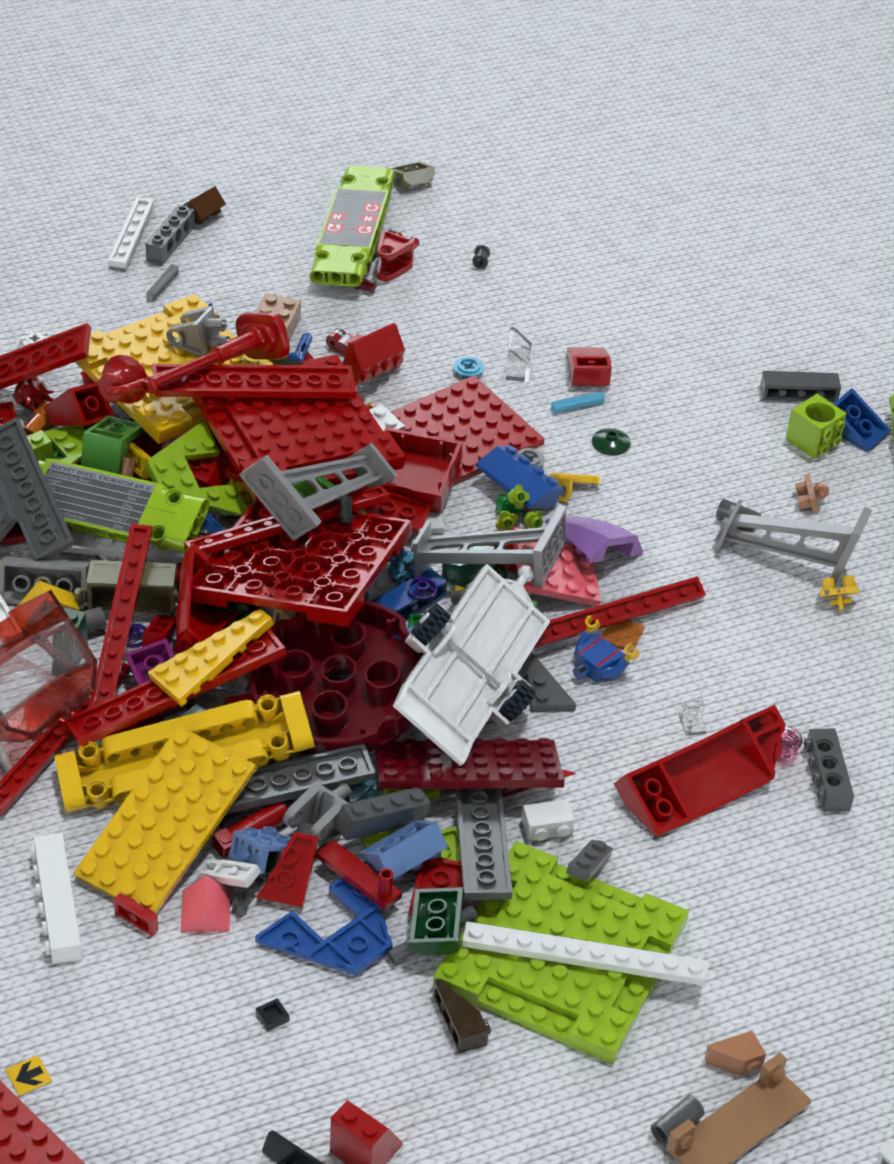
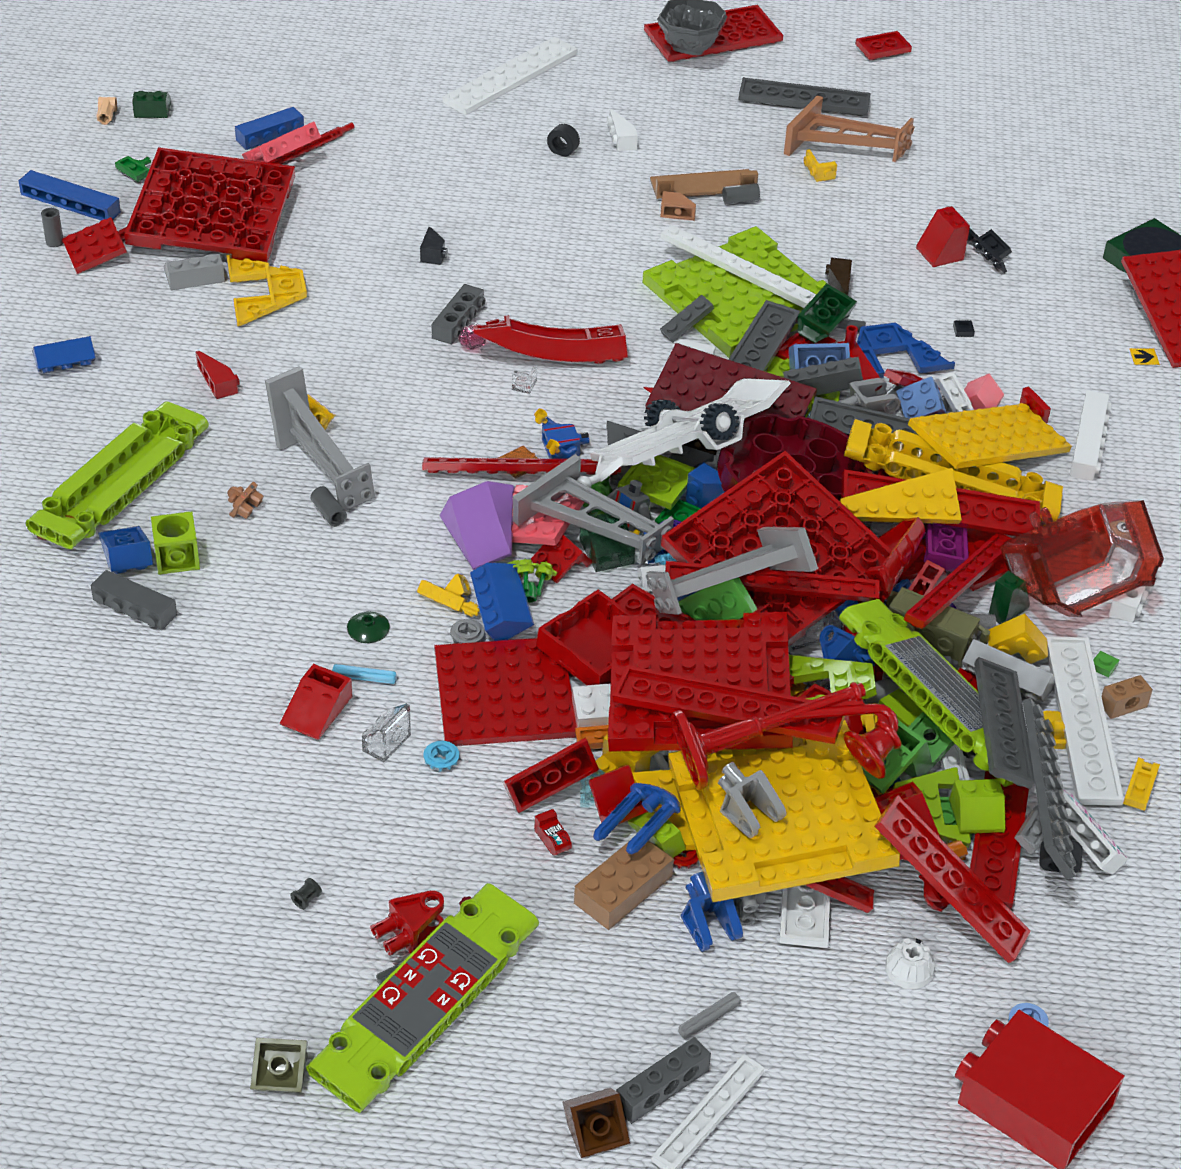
camera: 150 degrees left, 0 degrees up
(345, 508) = (720, 553): pearl dark grey pin -> none

